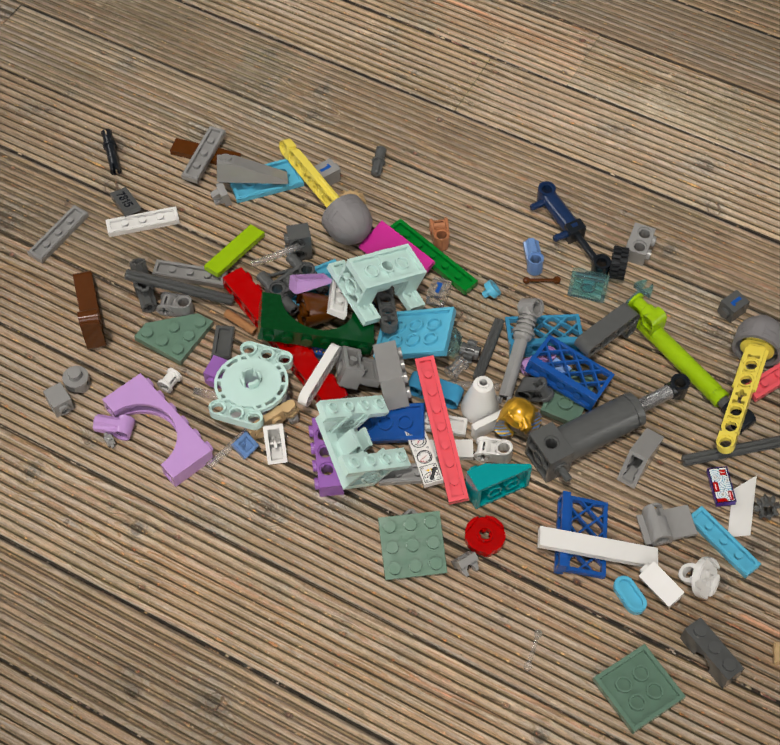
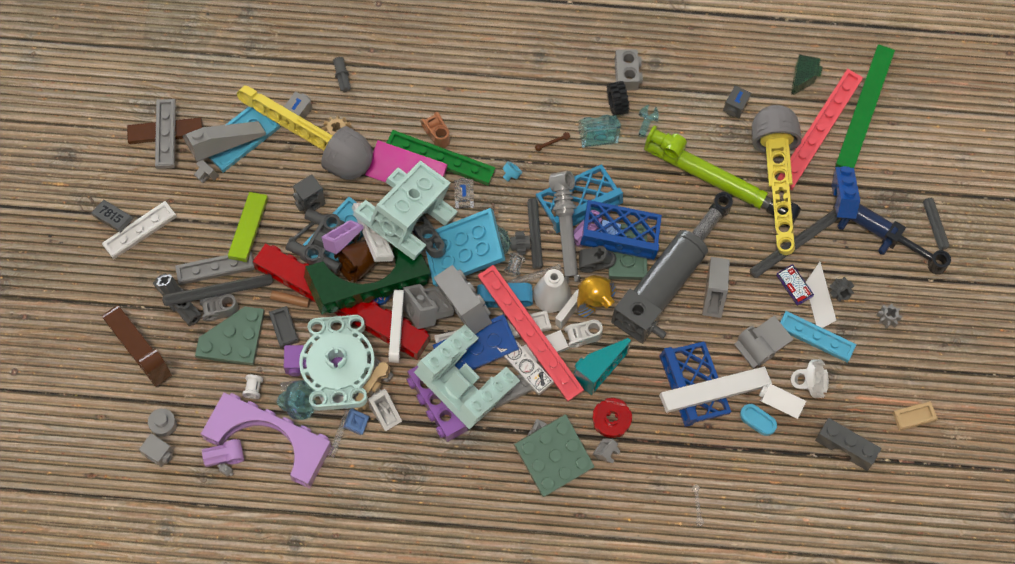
camera: 25 degrees left, 10 degrees up
(58, 234) = (60, 276): light grey tile -> none
(110, 146) = (64, 161): black pin -> none
(197, 405) = (296, 400): none -> clear light blue tile
(275, 255) = (292, 217): clear piece -> none
(533, 256) = (535, 120): medium blue piece -> none
(572, 228) = (558, 76): piece -> none
(618, 322) = (638, 173): dark grey beam -> none
(638, 688) = (800, 501): sand green plate -> none

